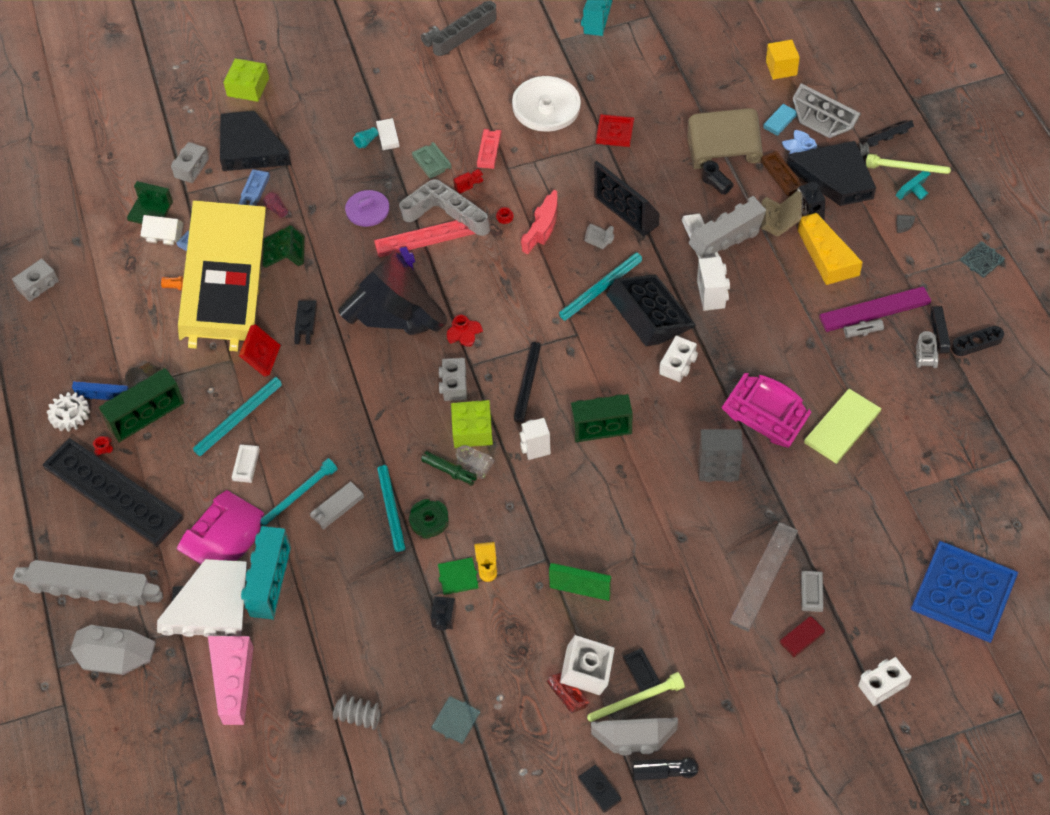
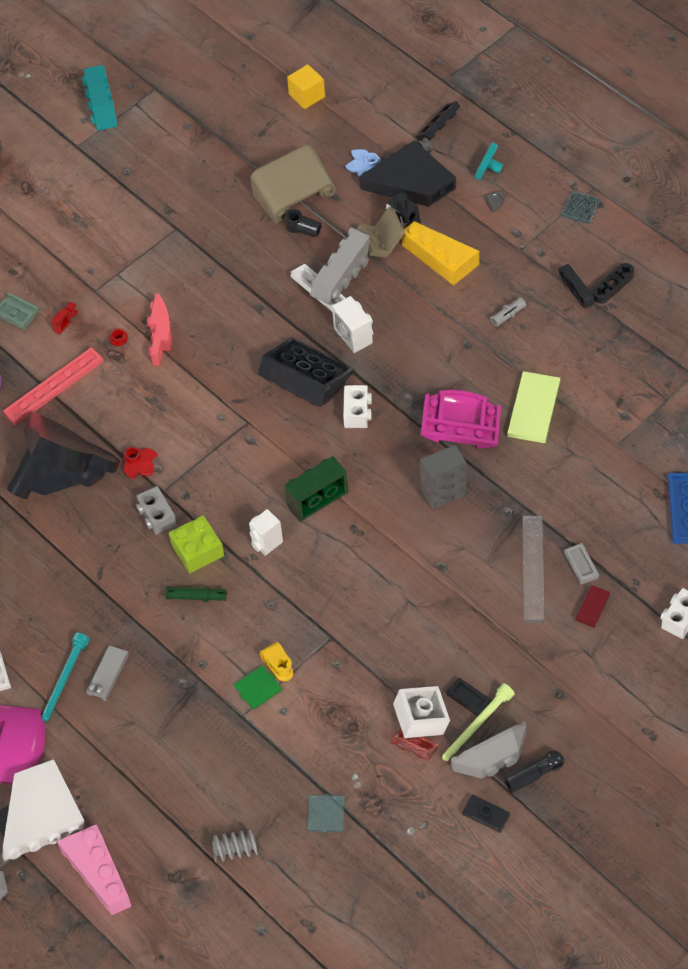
camera: 25 degrees left, 0 degrees up
(266, 572) = (78, 761): teal brick -> none
(391, 508) = (161, 653): teal axle -> none
(408, 257) = (46, 412): dark purple plate -> none
(431, 528) = (206, 657): dark green plate -> none
(438, 194) = (65, 345): light grey beam -> none
(443, 613) = (264, 725): black brick -> none
(474, 461) = (217, 577): clear piece -> none
(489, 149) = (67, 278): coral plate -> none
(527, 382) = (226, 485): black axle -> none
(546, 103) = (101, 213): white dish -> none
(580, 581) = (376, 642): green tile -> none
(599, 236) = (221, 322): light grey bracket -> none
(600, 286) = (246, 368): teal axle -> none
(615, 130) = (181, 214): red plate -> none
(624, 201) = (229, 278): black slope -> none
(780, 119) = (332, 145): medium azure tile -> none
(781, 173) = (361, 196): reddish brown plate -> none
(823, 113) = (371, 125): light grey wedge -> none
(874, 161) = (441, 152): yellowish green piece -> none
(875, 309) = (508, 290): magenta tile -> none
(926, 353) = (576, 312): light grey piece -> none

